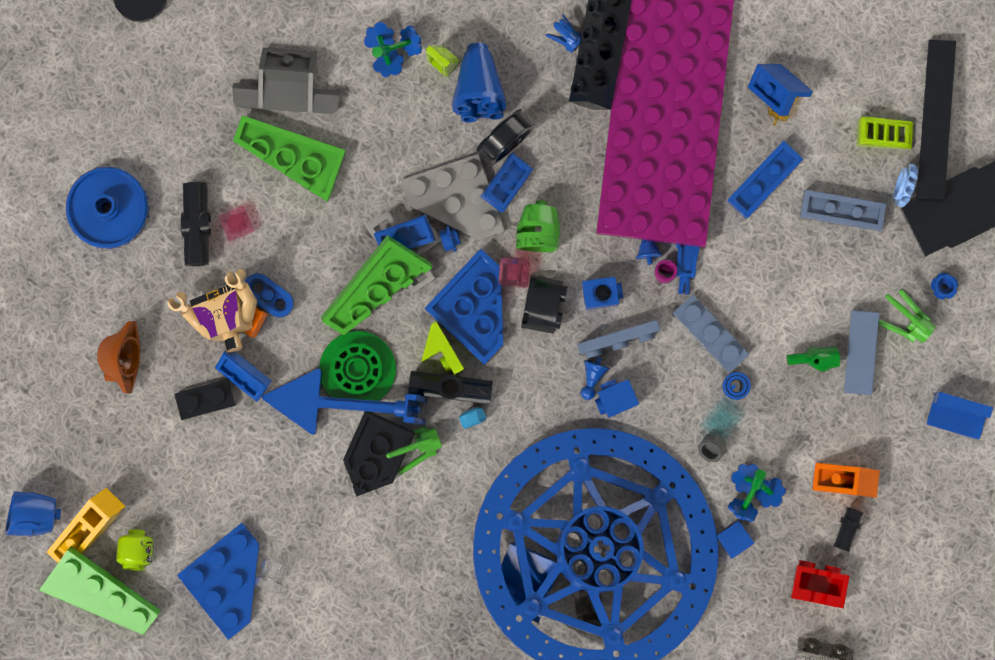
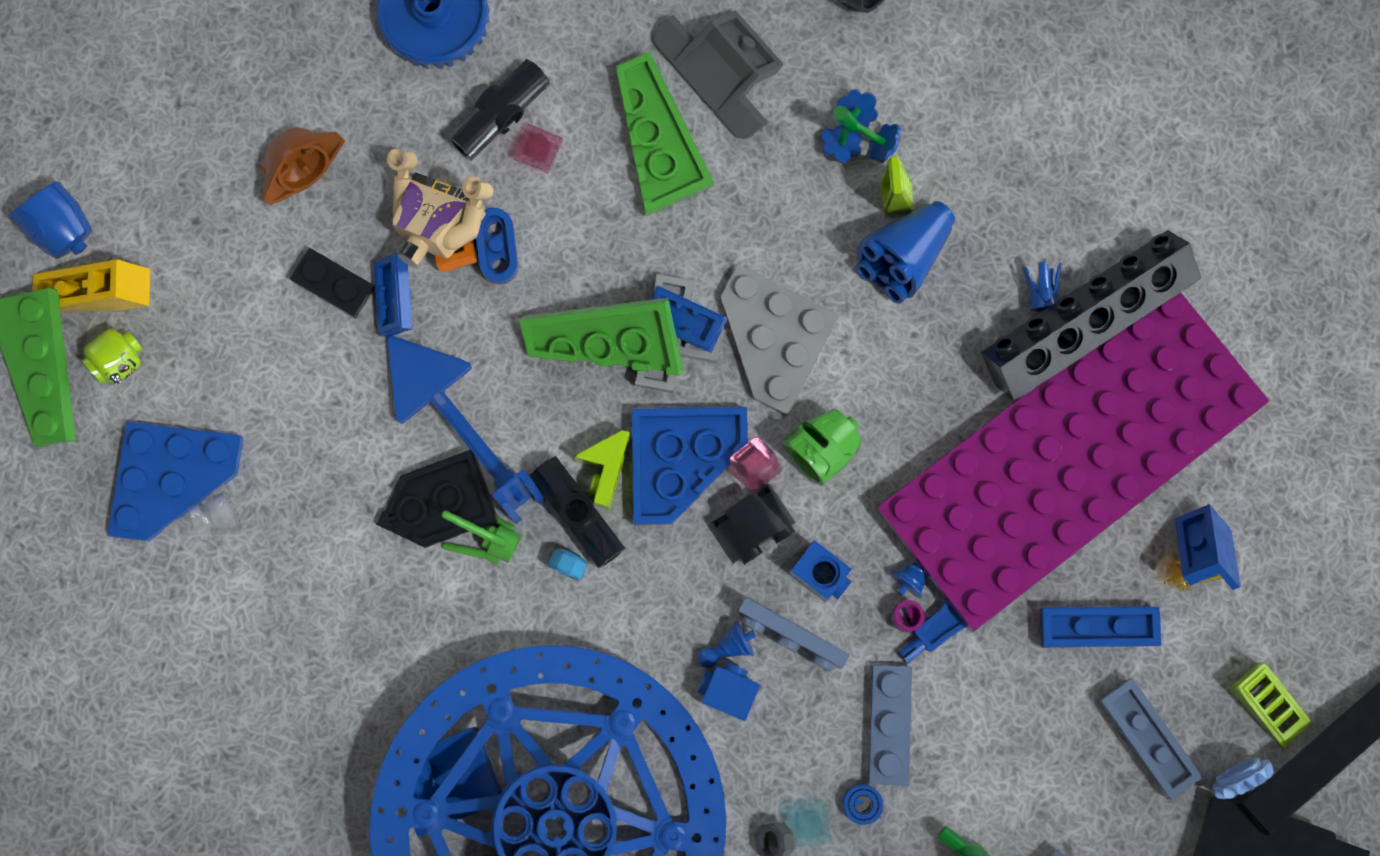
camera: 40 degrees right, 5 degrees down
(357, 367) = (508, 401): green wheel -> none
(450, 239) = (726, 368): blue plate -> none
(505, 137) = (882, 322): black wheel -> none
(506, 182) = (838, 369): blue plate -> none

